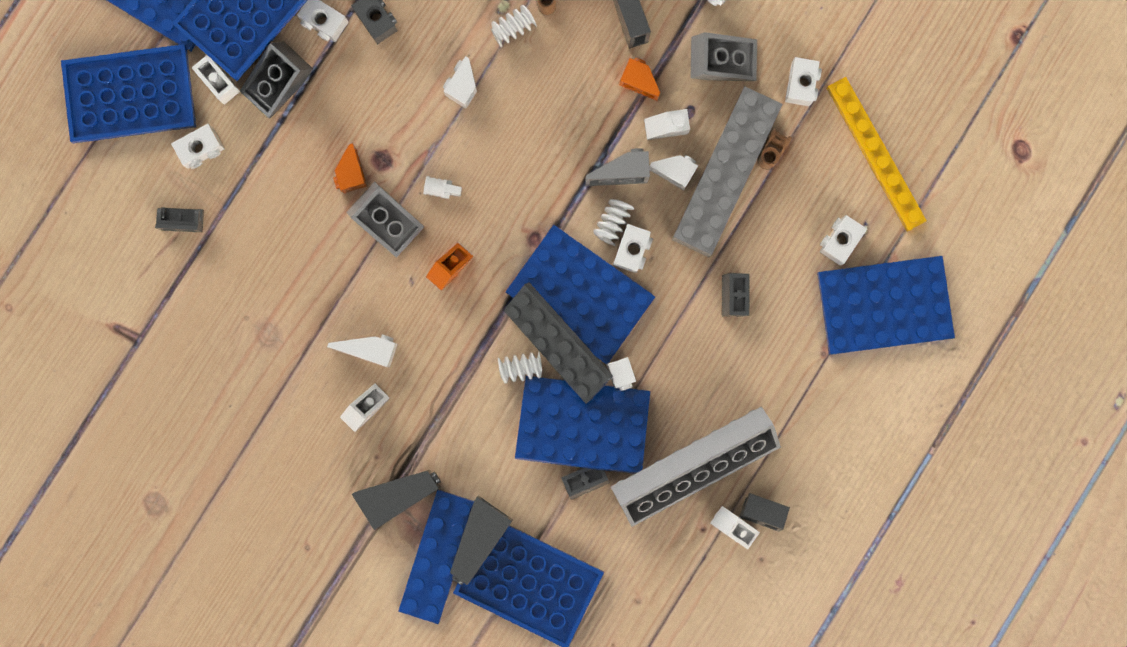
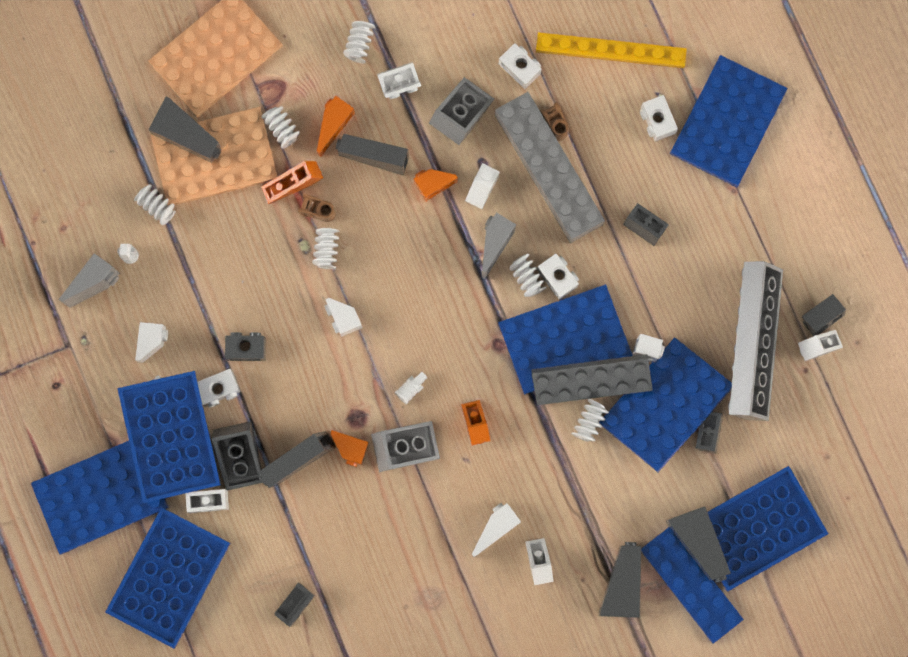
camera: 55 degrees left, 5 degrees down
(186, 146) = (243, 540): white brick -> none
(307, 131) = (297, 459): none -> dark grey slope
(676, 170) = (522, 203): white slope -> none

